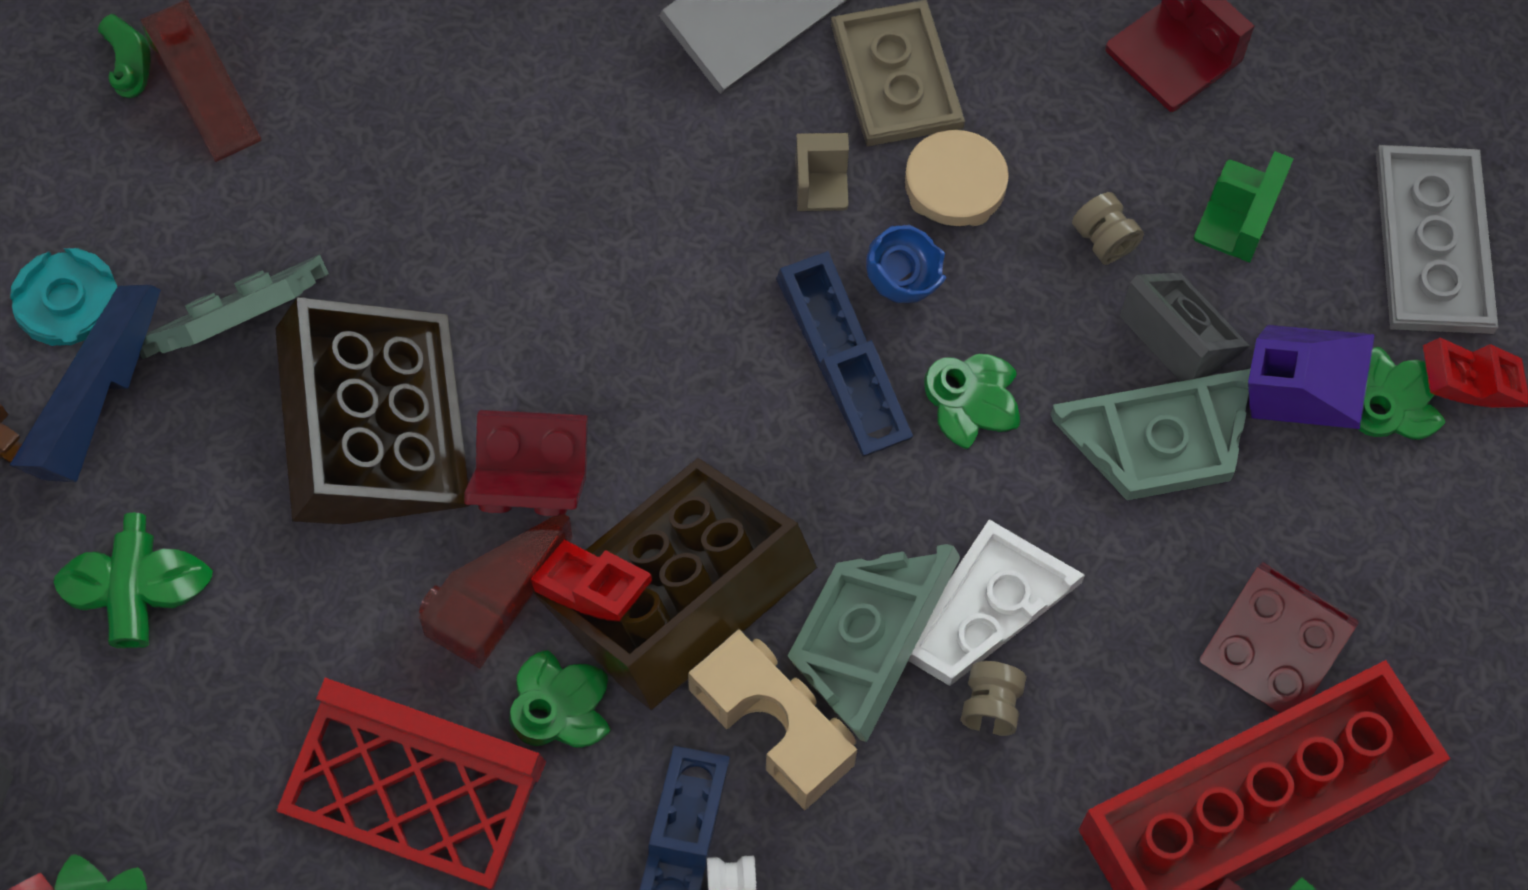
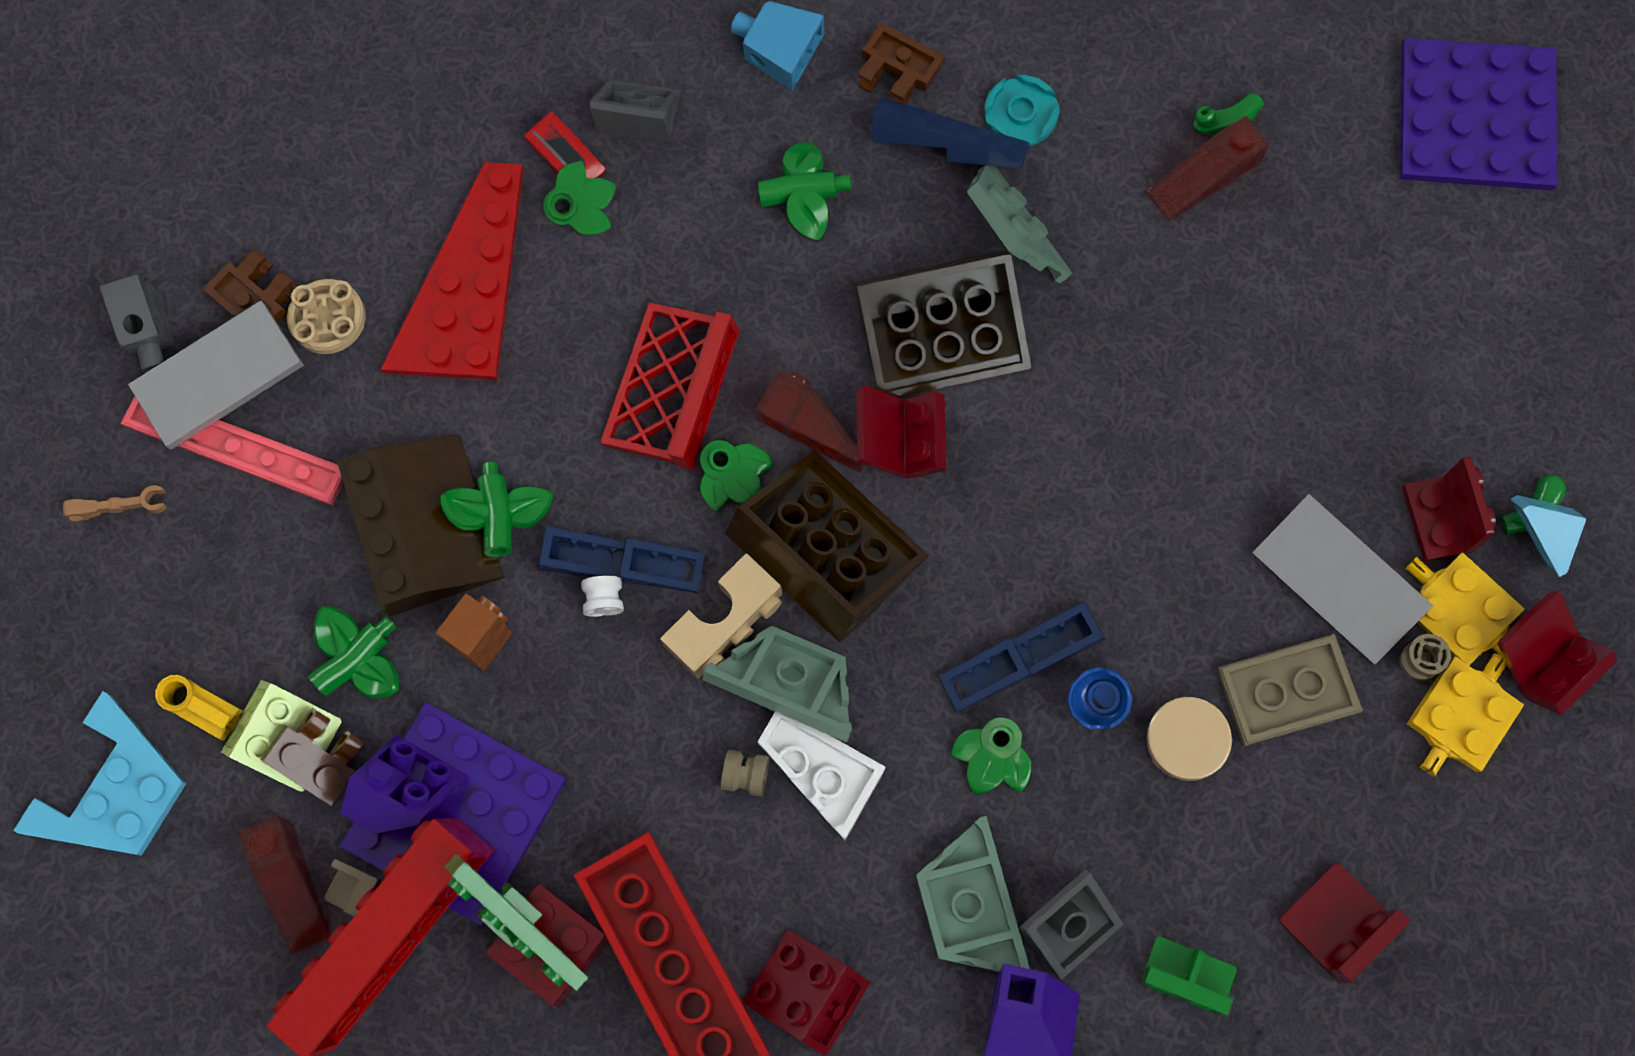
camera: 95 degrees right, 10 degrees up
(589, 583) = (812, 482): red slope -> none
(822, 171) = (1180, 631): dark tan panel -> none
(1107, 228) = (1152, 861): dark tan wheel -> none

